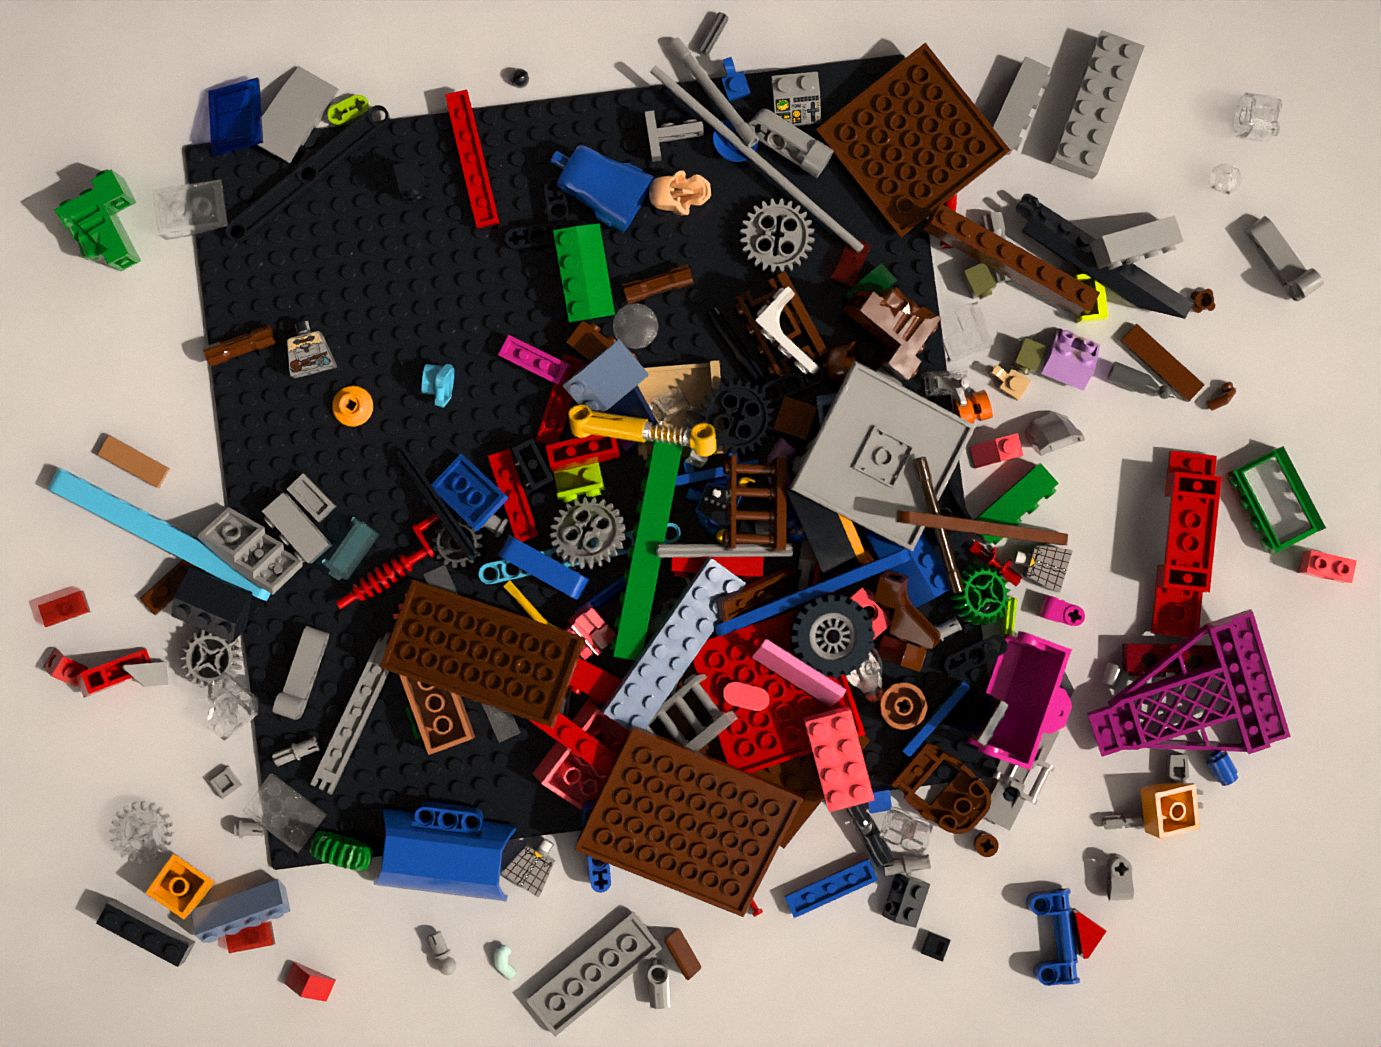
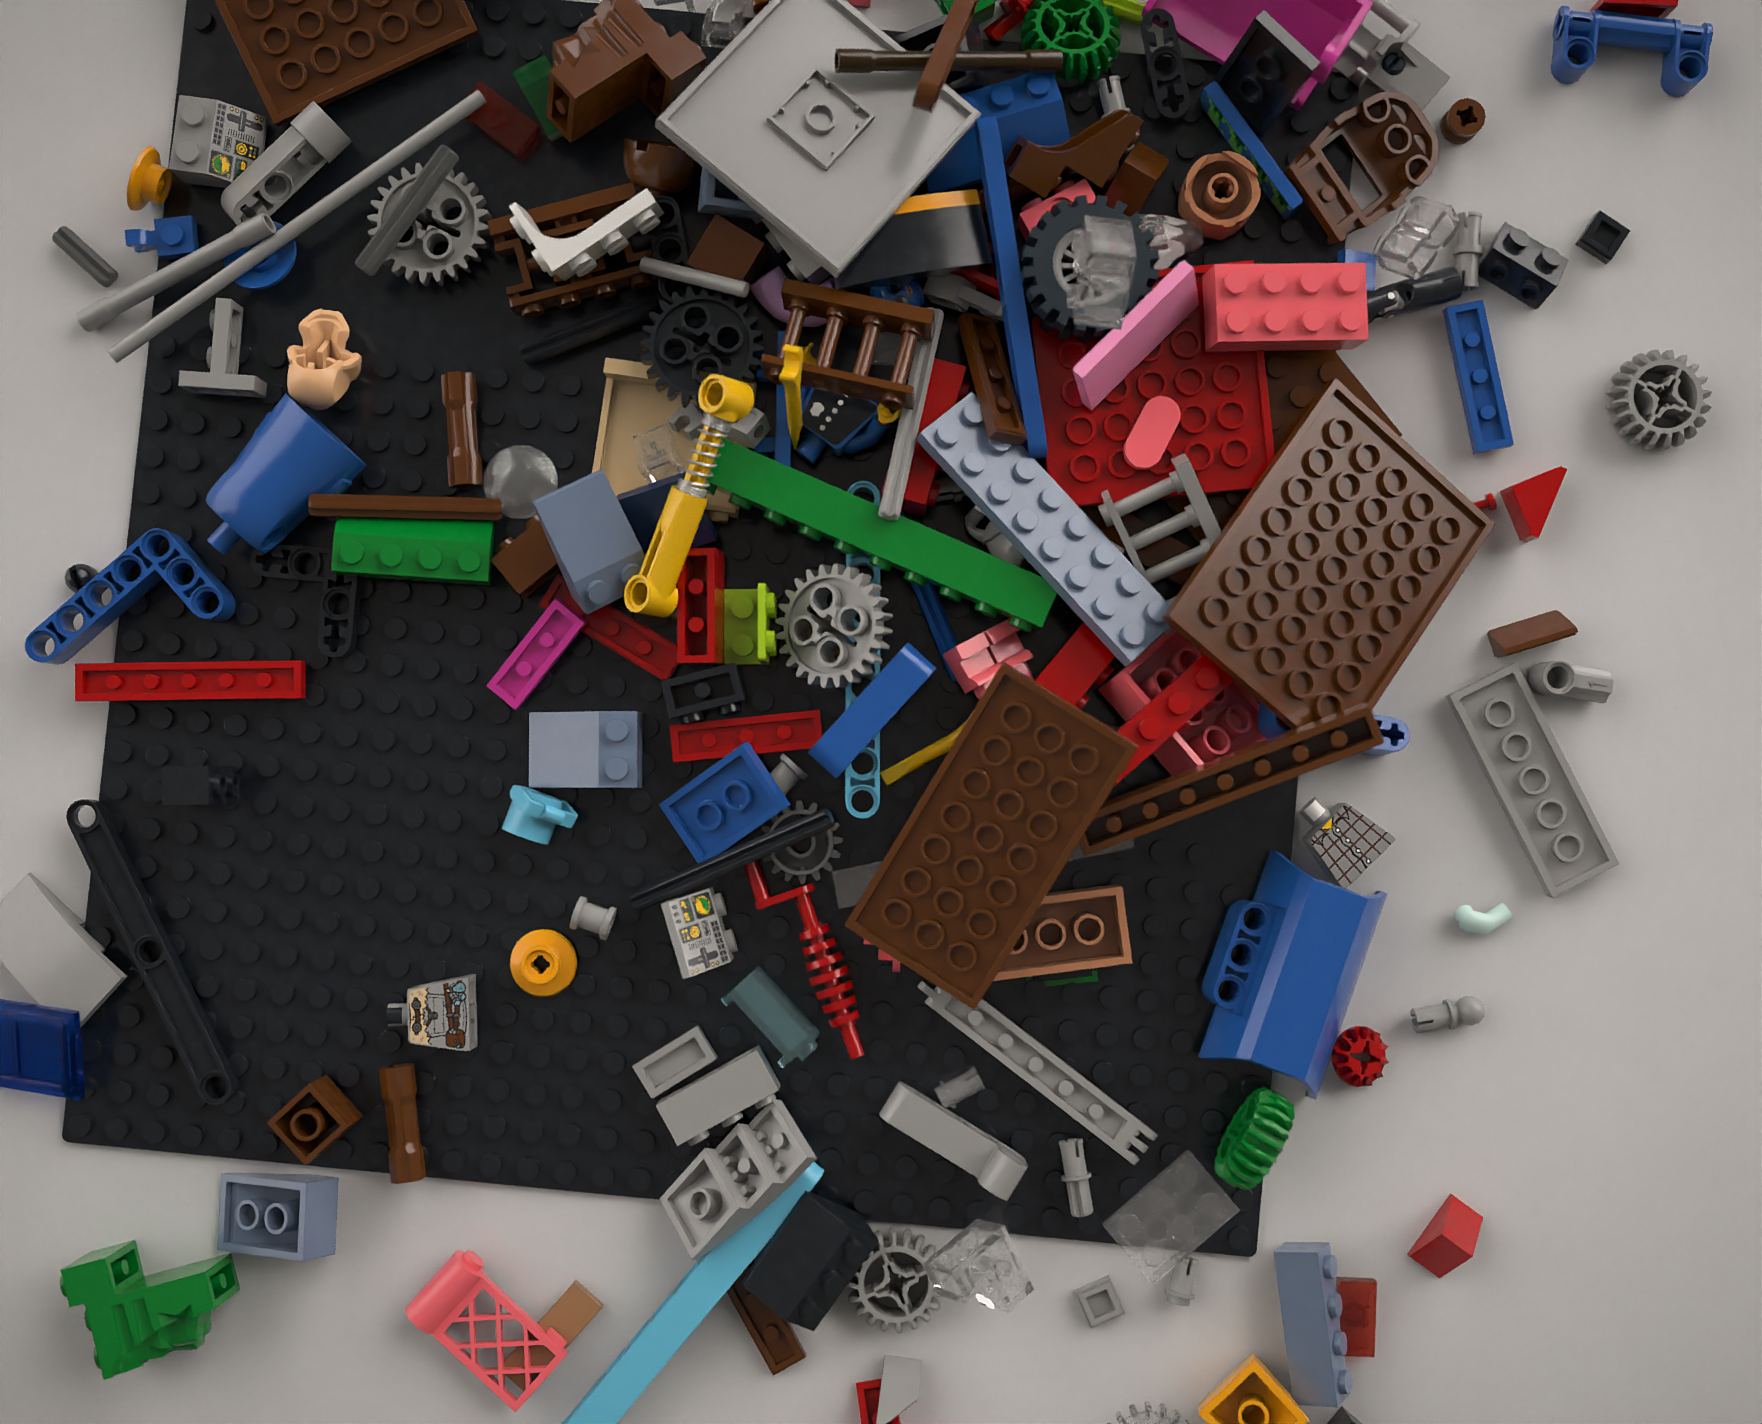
camera: 75 degrees left, 0 degrees up
(140, 394) = (449, 1295): none -> coral piece
(169, 284) = (278, 1215): none -> sand blue slope
(189, 209) = (161, 1155): clear slope -> none
(230, 294) = (315, 1119): none -> reddish brown head
(332, 669) = (959, 1088): none -> clear pin
(346, 105) = (66, 863): lime beam -> none
(385, 429) = (593, 918): none -> light grey bush
(390, 494) = (699, 931): none -> slope
(412, 899) = (1357, 1040): none -> red gear
(483, 402) = (585, 749): none -> sand blue slope
(516, 108) = (126, 592): none -> blue beam
(548, 787) = (1232, 777): none -> reddish brown brick
(602, 263) = (405, 507): none -> reddish brown axle
(722, 475) = (791, 380): none -> yellow piece
(762, 936) = (1532, 501): none -> red slope
(764, 63) = (148, 180): none -> light orange piece
(777, 402) = (694, 277): none -> light grey bar
(779, 222) = (407, 210): none -> dark grey axle
(825, 643) = (1105, 271): none -> clear brick
(831, 996) = (1684, 409): none -> light grey gear

